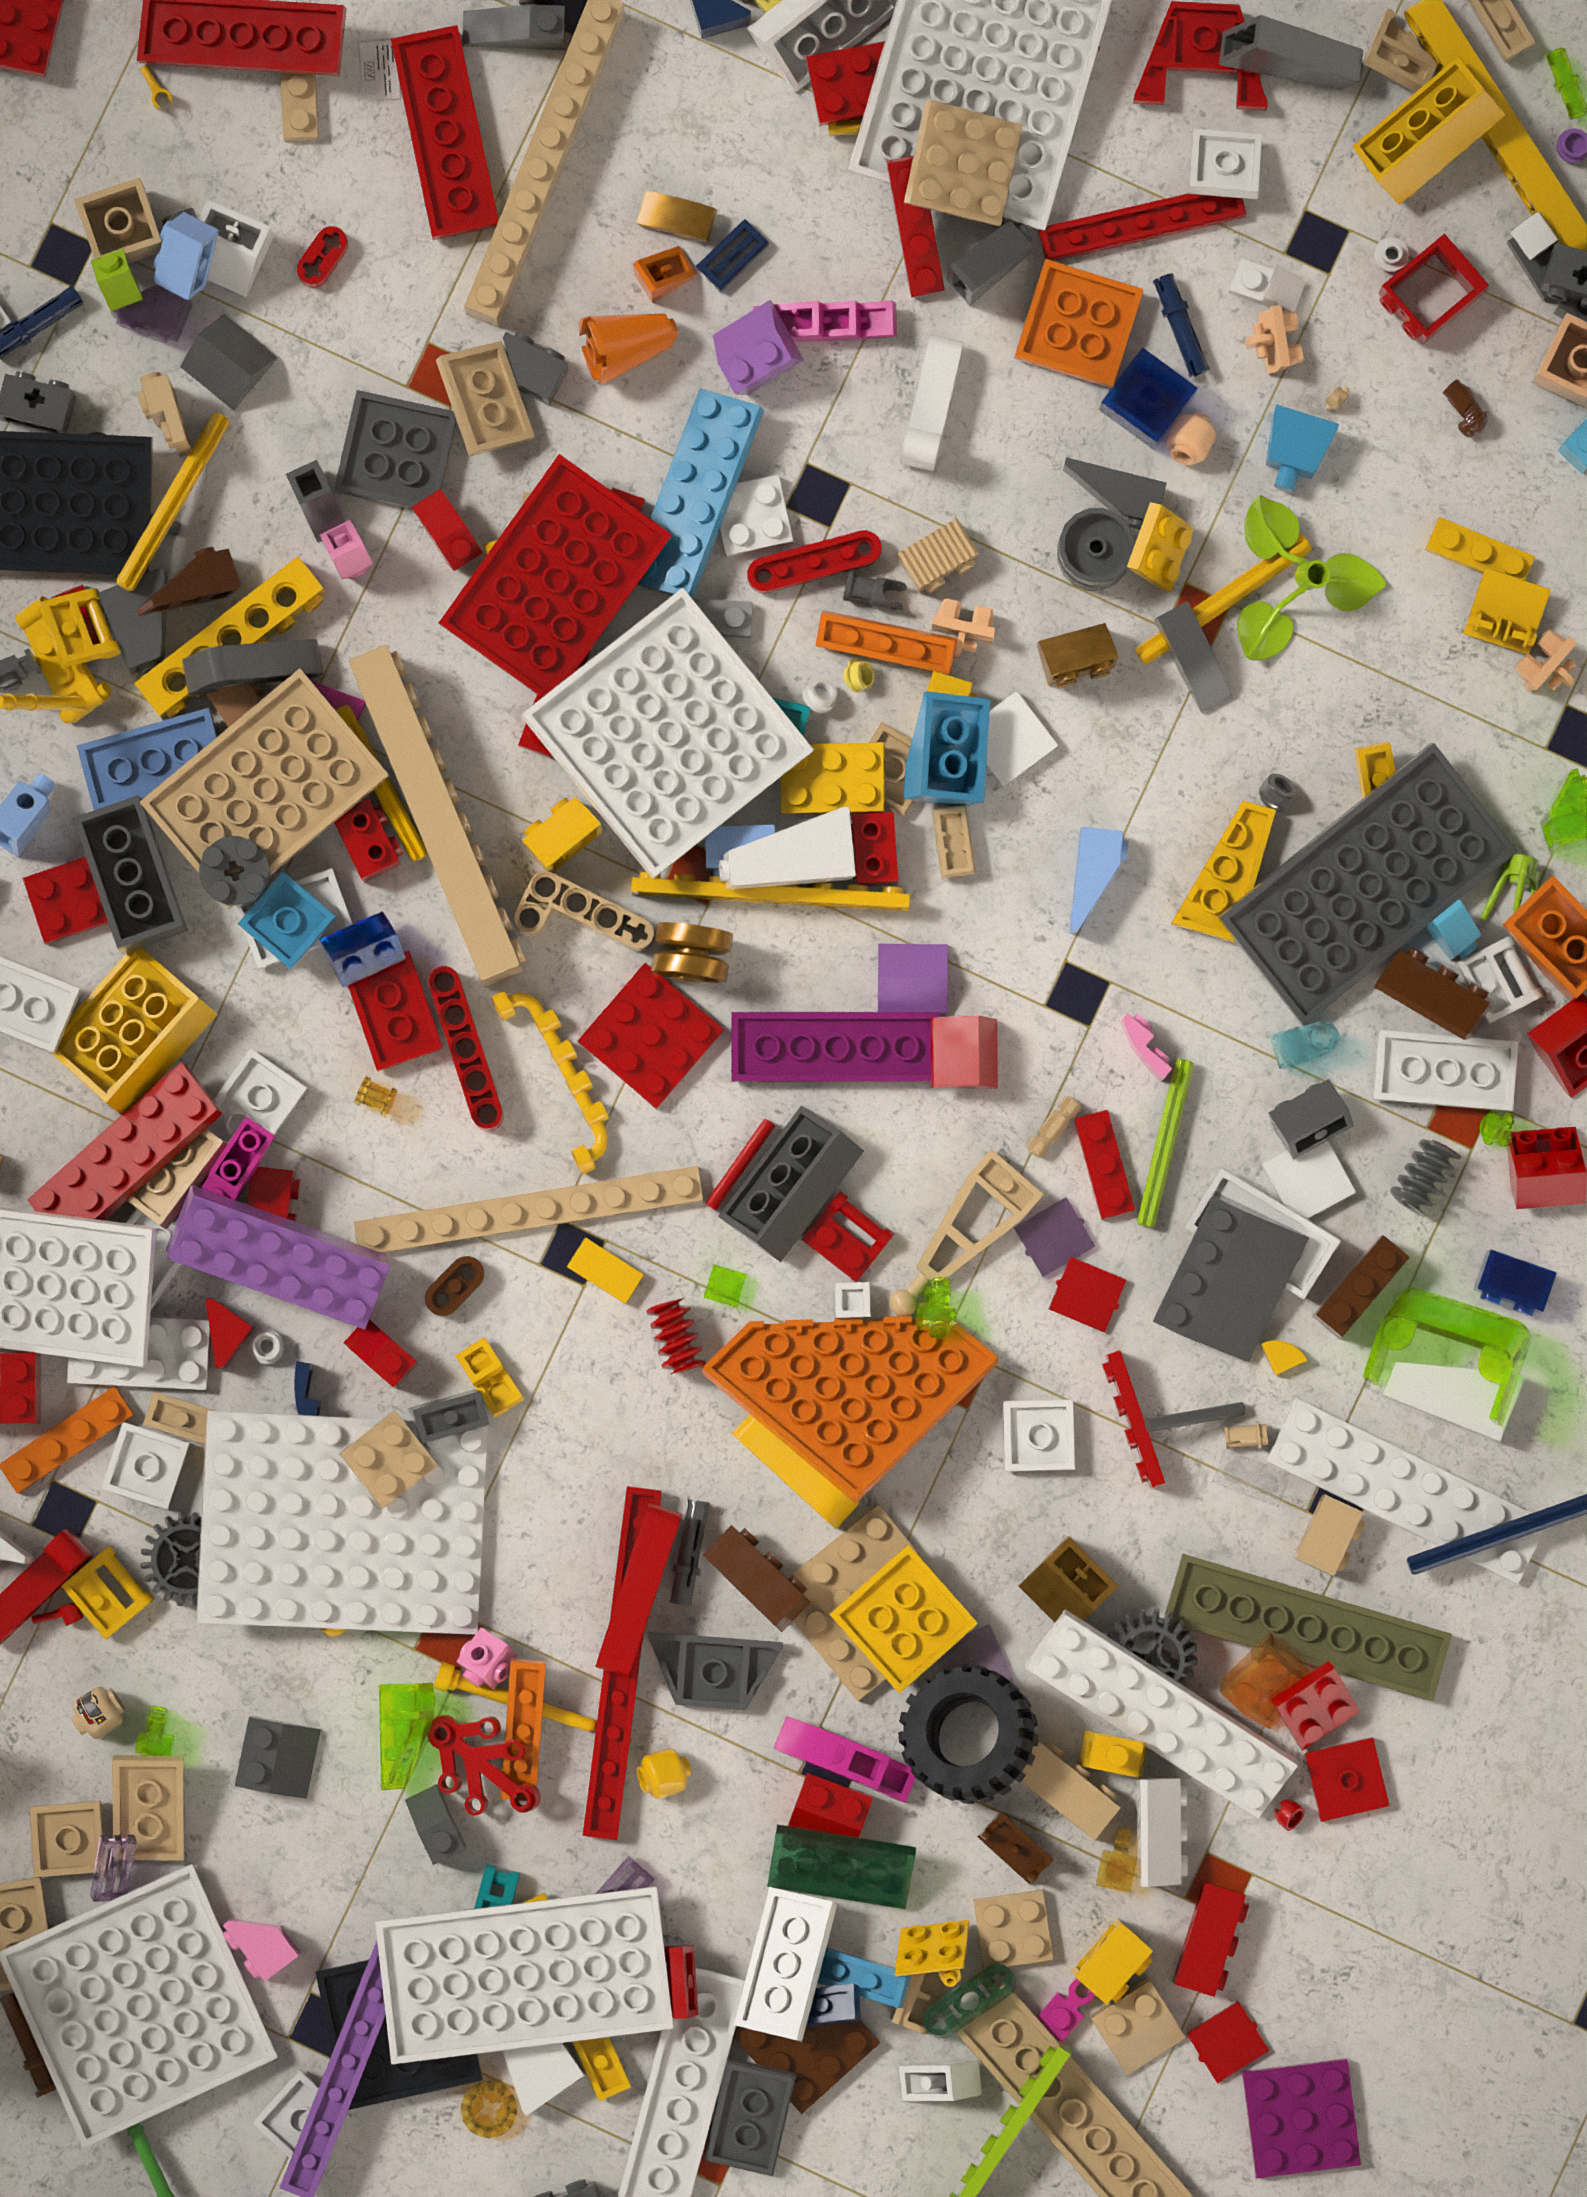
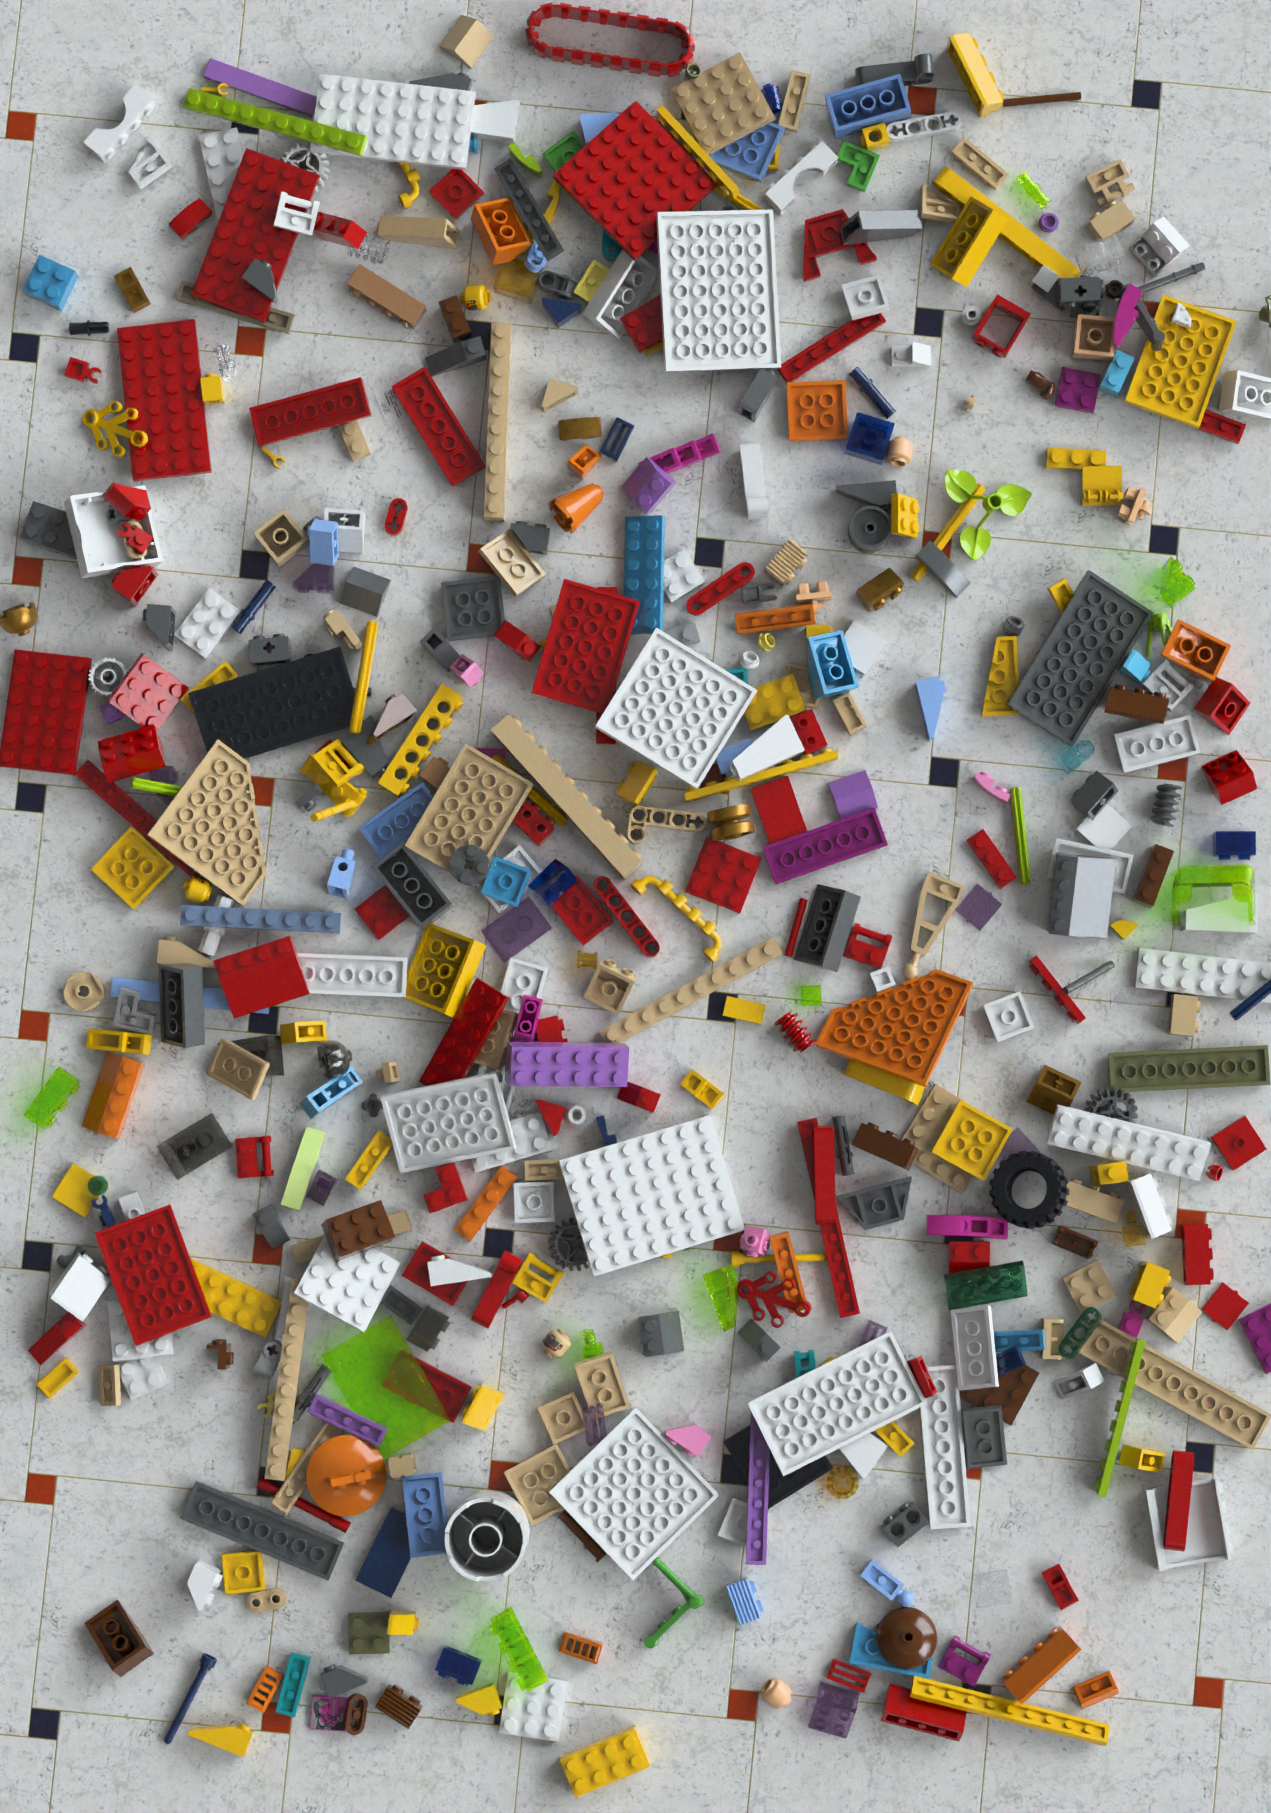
camera: 15 degrees left, 0 degrees up
(116, 279) = (291, 568): lime brick -> none
(250, 664) = (437, 750): dark grey beam -> none
(278, 1006) = (516, 929): none -> clear purple tile
(388, 1459) = (664, 1152): tan plate -> none
(398, 1153) = (610, 986): none -> tan plate
(449, 1416) = (688, 1117): dark grey panel -> none
(453, 1284) = (666, 1047): reddish brown plate -> none
(659, 146) = (557, 393): none -> tan slope
(663, 1773) = (872, 1269): yellow head -> none
(780, 960) = (778, 809): none -> red tile
(915, 234) = (711, 388): red plate -> none
(933, 1949) = (1050, 1312): yellow hinge -> none
(935, 1312) = (930, 970): clear neon green plate -> none
(963, 163) = (725, 346): tan plate -> none
(964, 1052) = (895, 825): slope -> none
(1053, 1126) = (957, 848): tan axle -> none
(1087, 1294) = (1007, 931): red piece -> none
(1246, 1436) = (1119, 977): tan pin -> none
(1259, 1678) = (1178, 1105): clear orange slope -> none
(1272, 342) = (924, 384): light nougat hips -> none
(1297, 445) = (957, 435): dark azure torso -> none
(1315, 1705) = (1208, 1109): red plate -> none
(1497, 1128) = (1191, 765): clear neon green plate -> none
(1523, 439) = (1077, 390): none -> magenta plate

